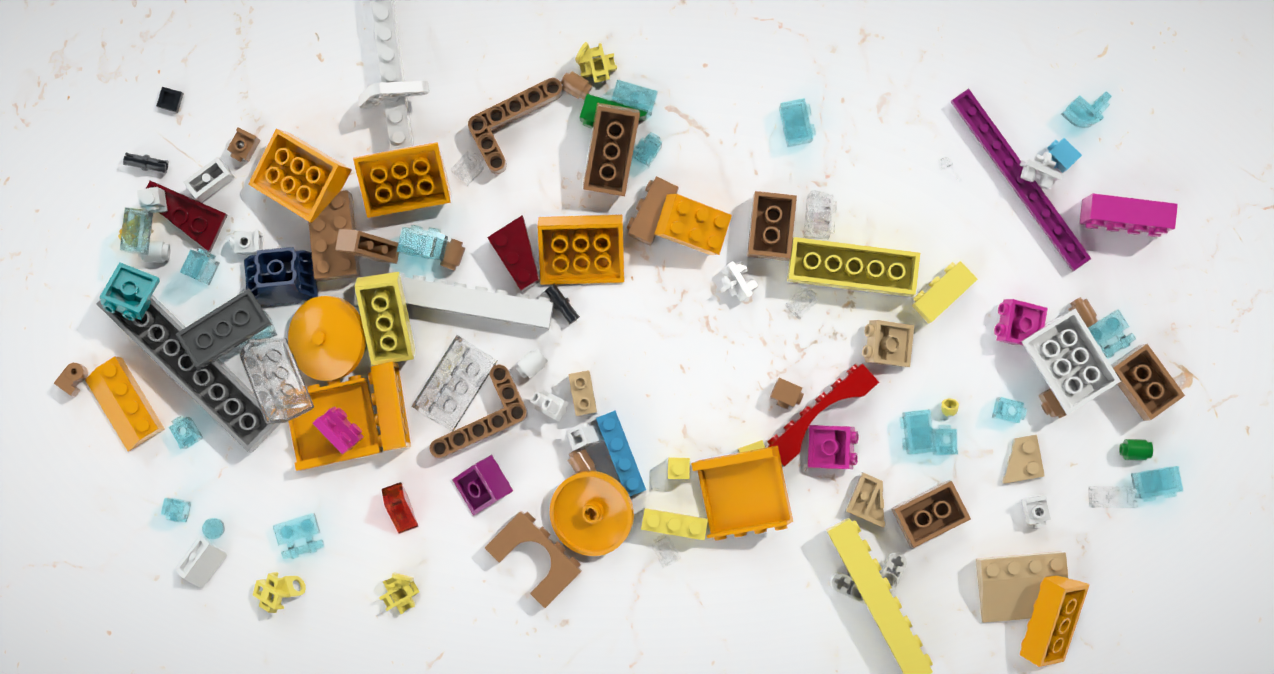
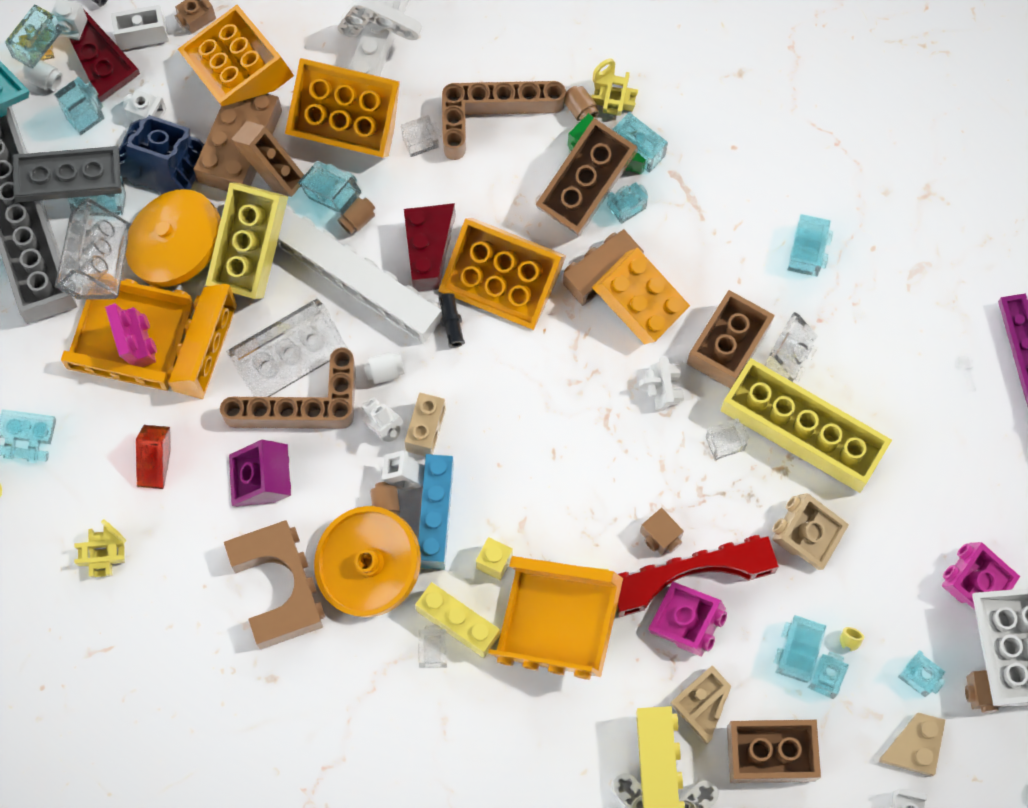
camera: 25 degrees right, 15 degrees down
(943, 291) = (901, 502): light yellow brick -> none

